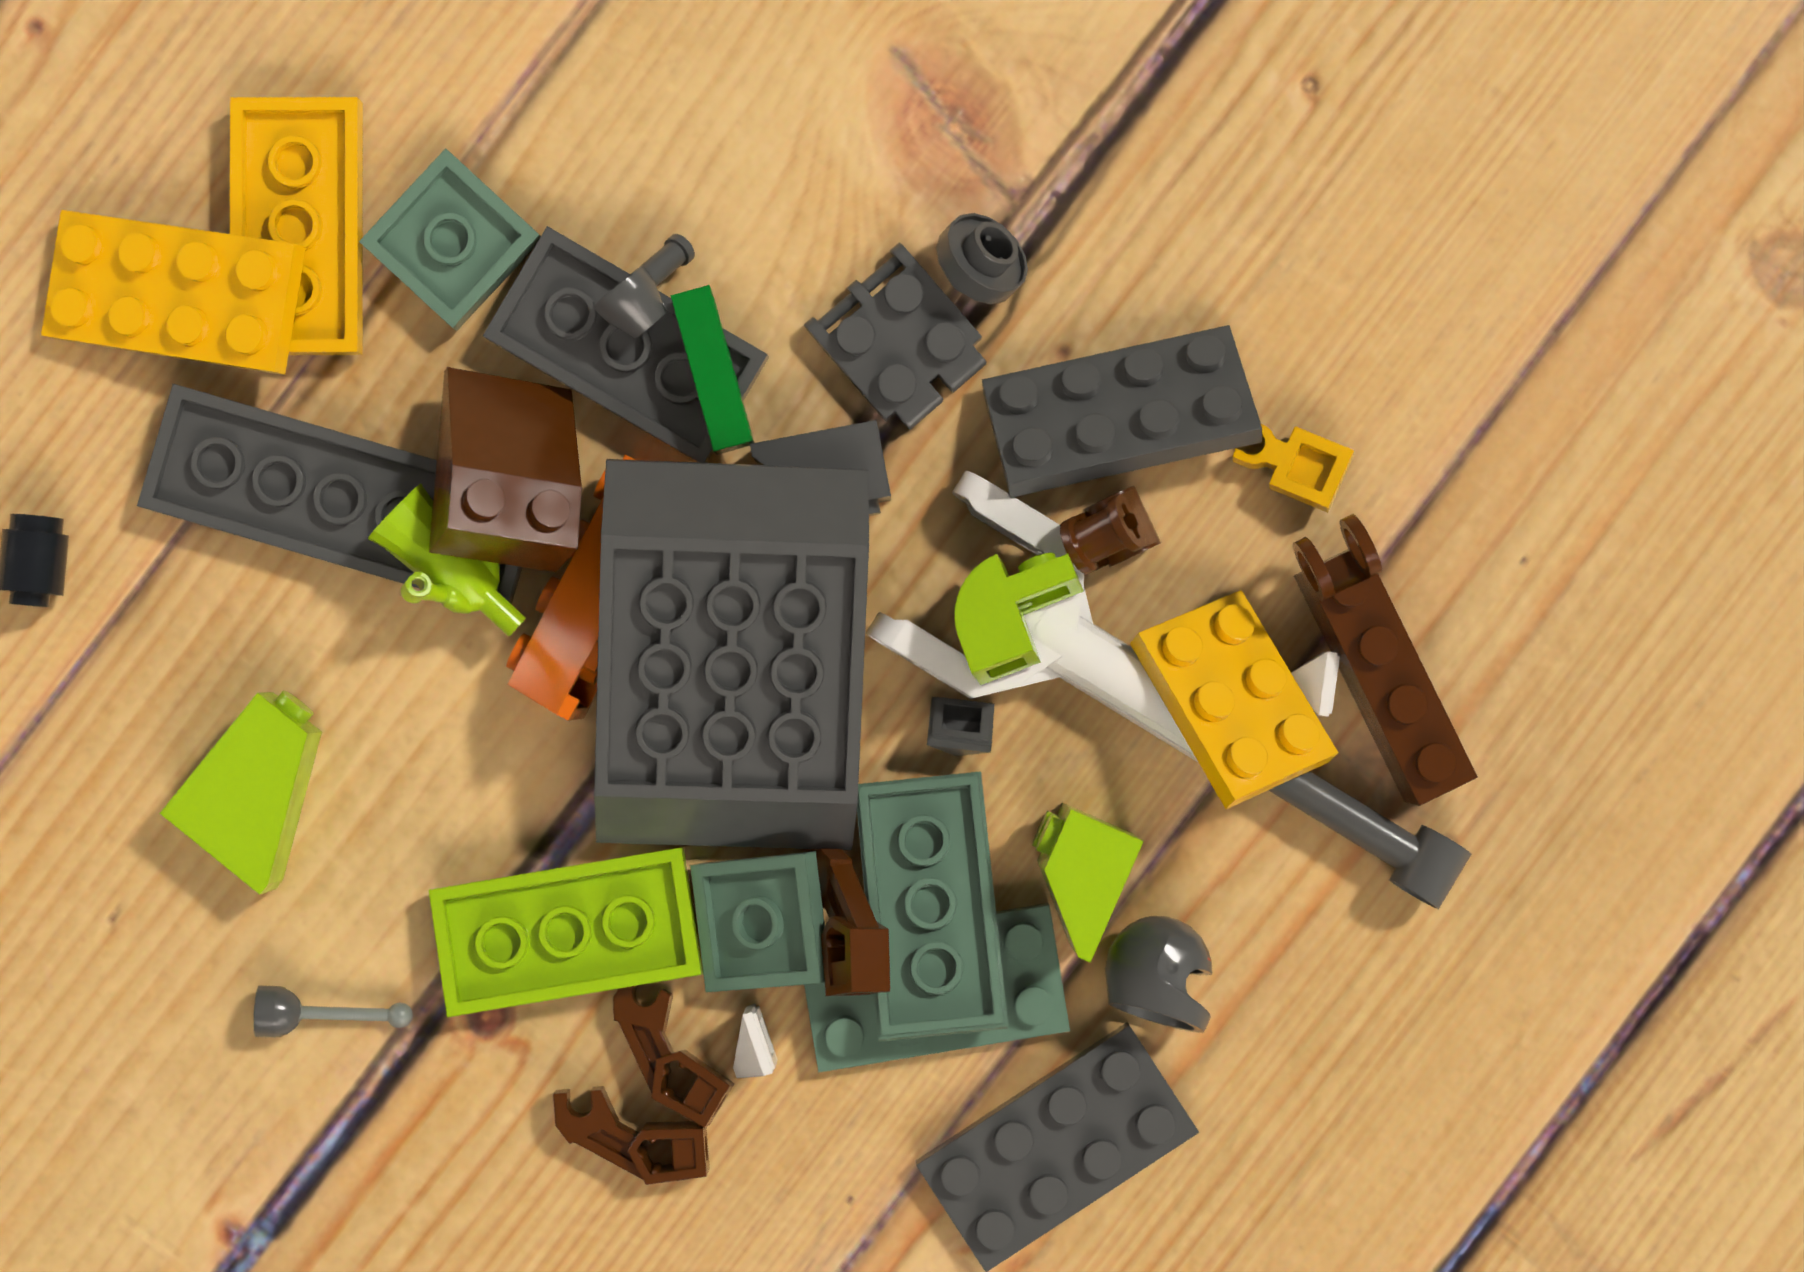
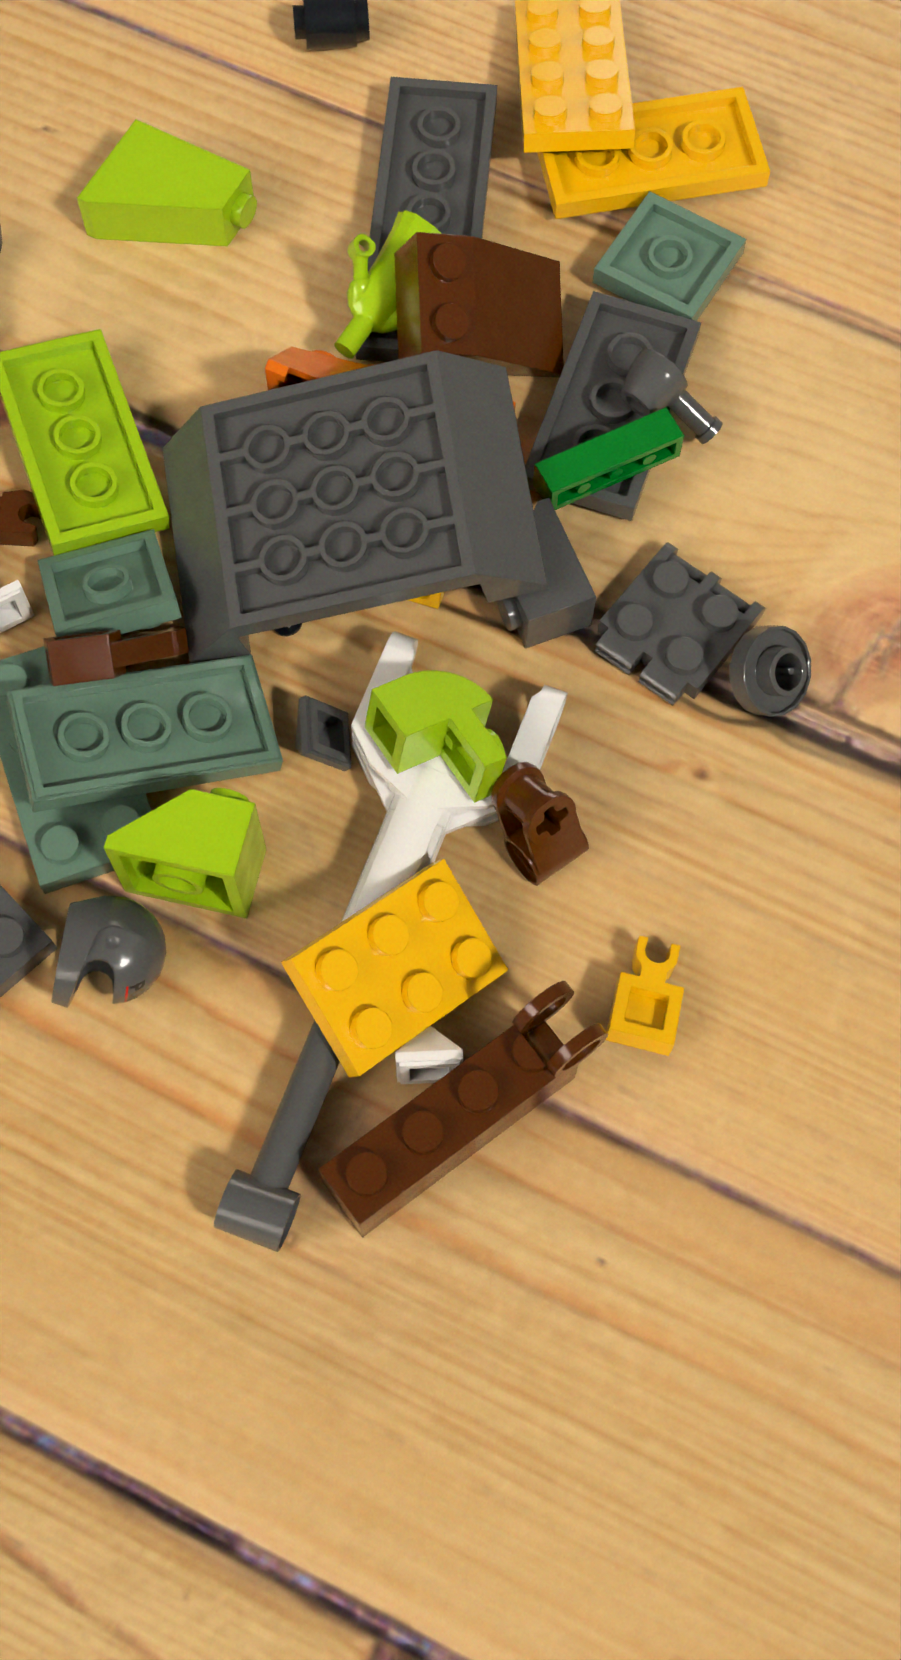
camera: 85 degrees right, 20 degrees down
(1121, 411) = (658, 820): dark grey plate -> none

